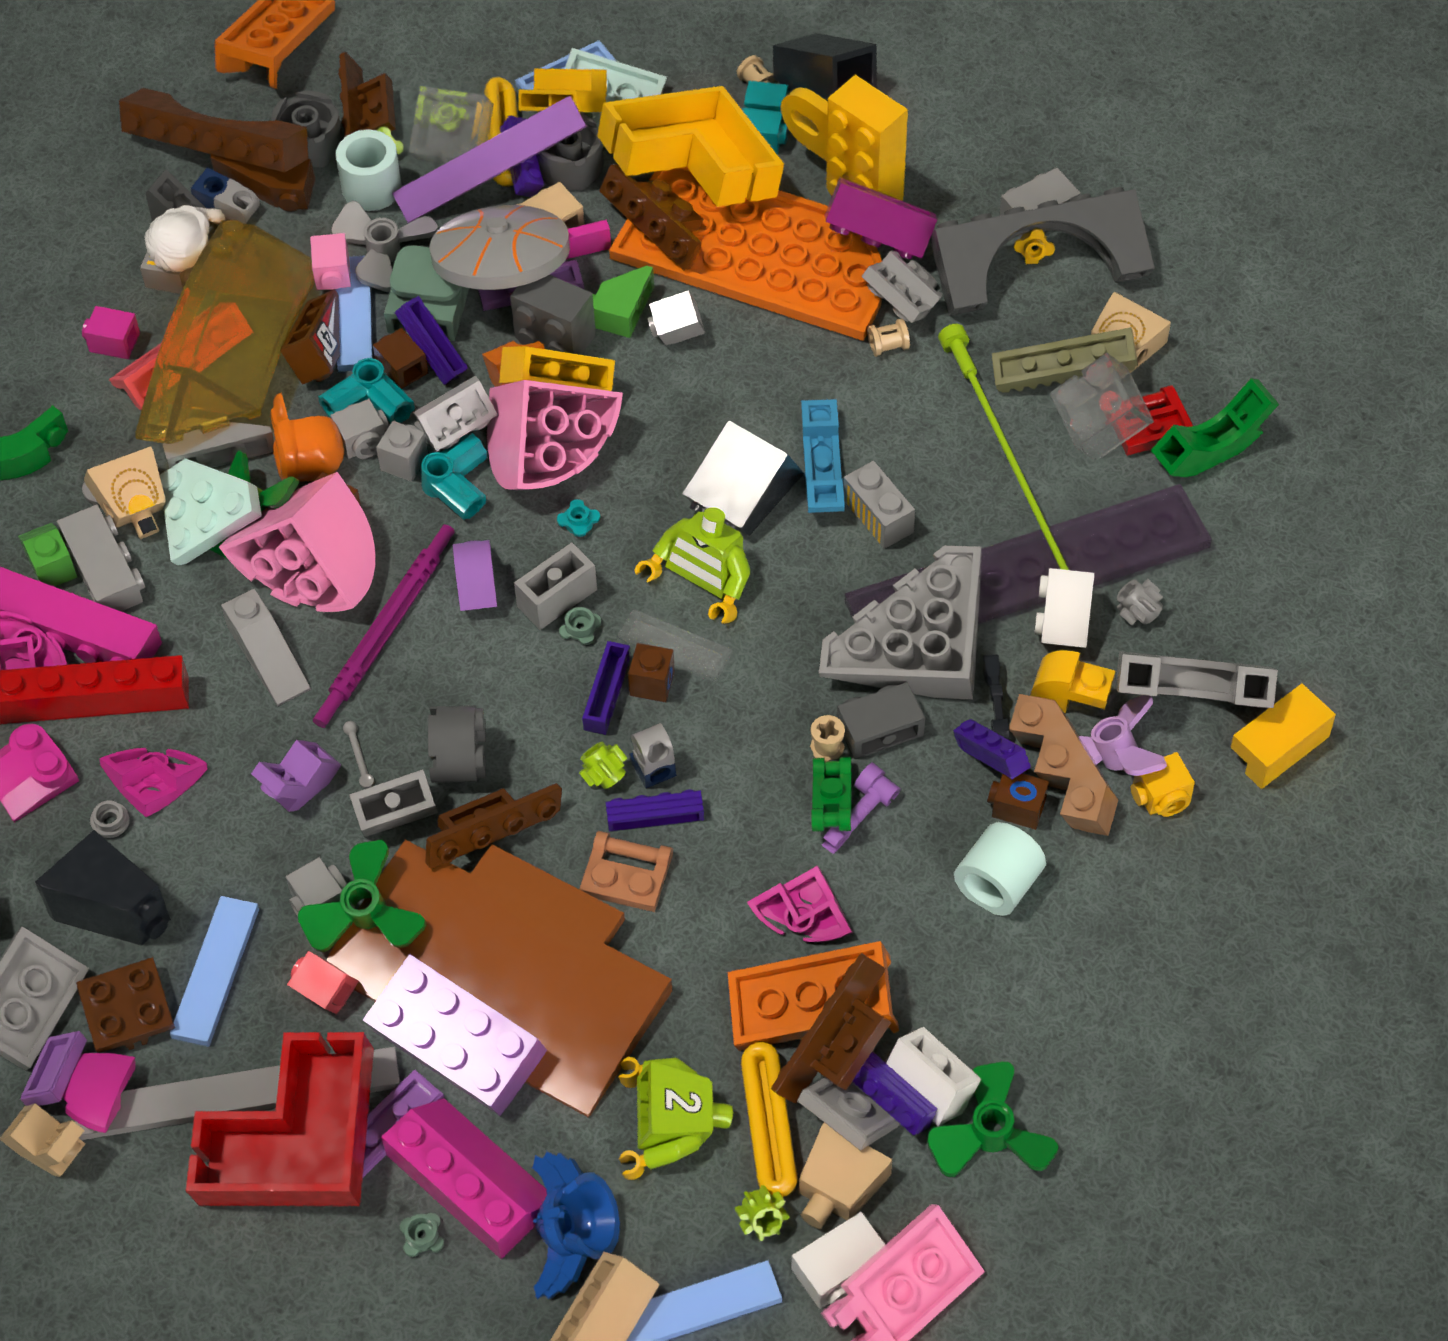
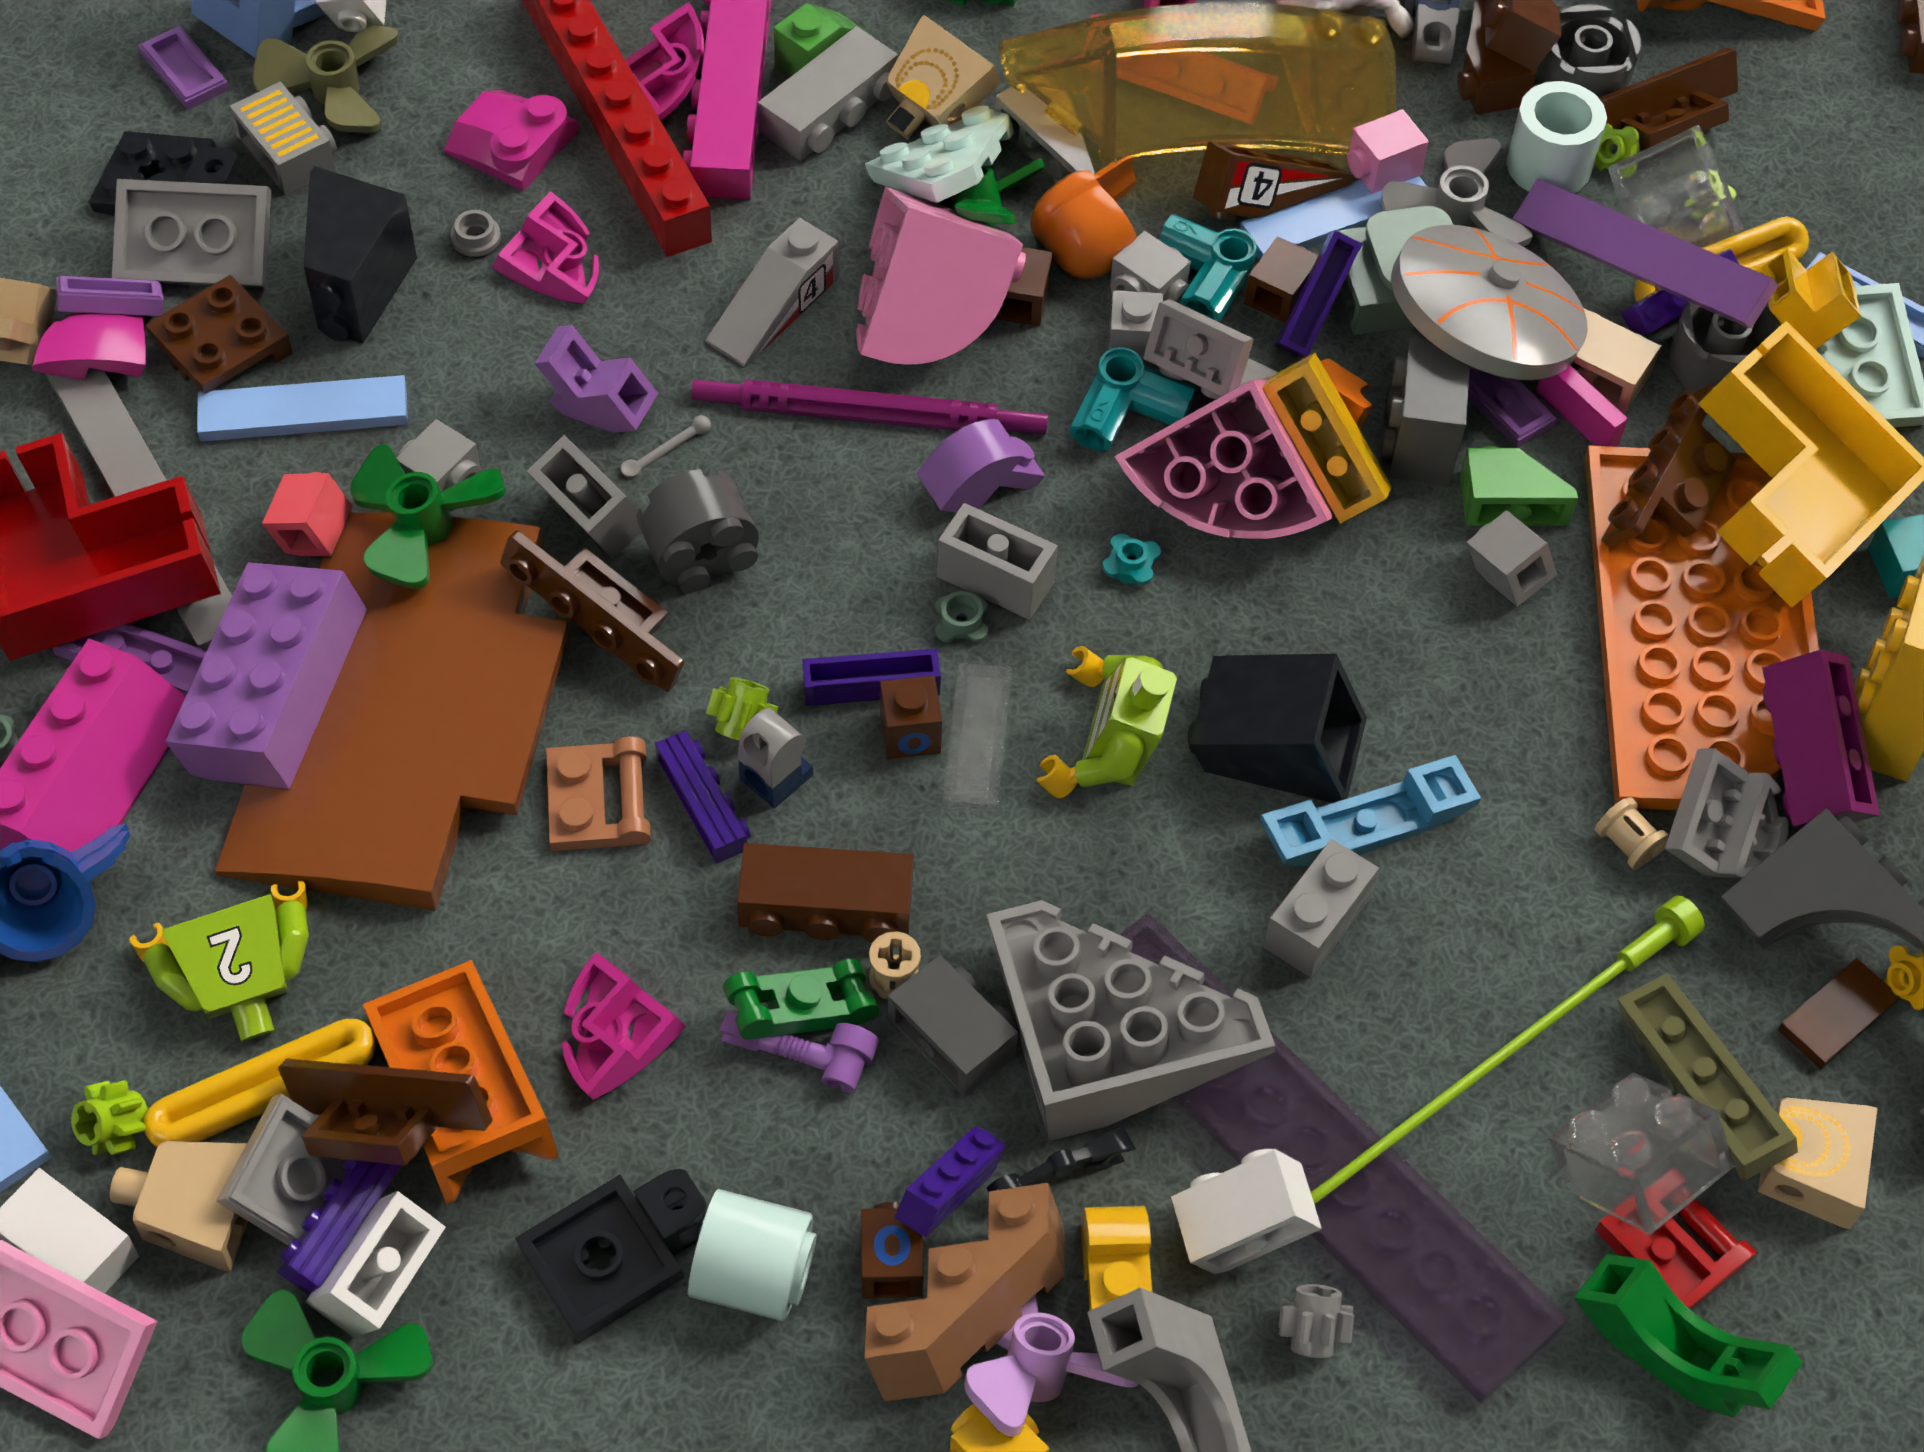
camera: 65 degrees right, 0 degrees up
(759, 760) = (824, 891): none -> reddish brown brick
(956, 929) = (639, 1228): none -> black plate
(1039, 291) = (1838, 1013): none -> reddish brown tile

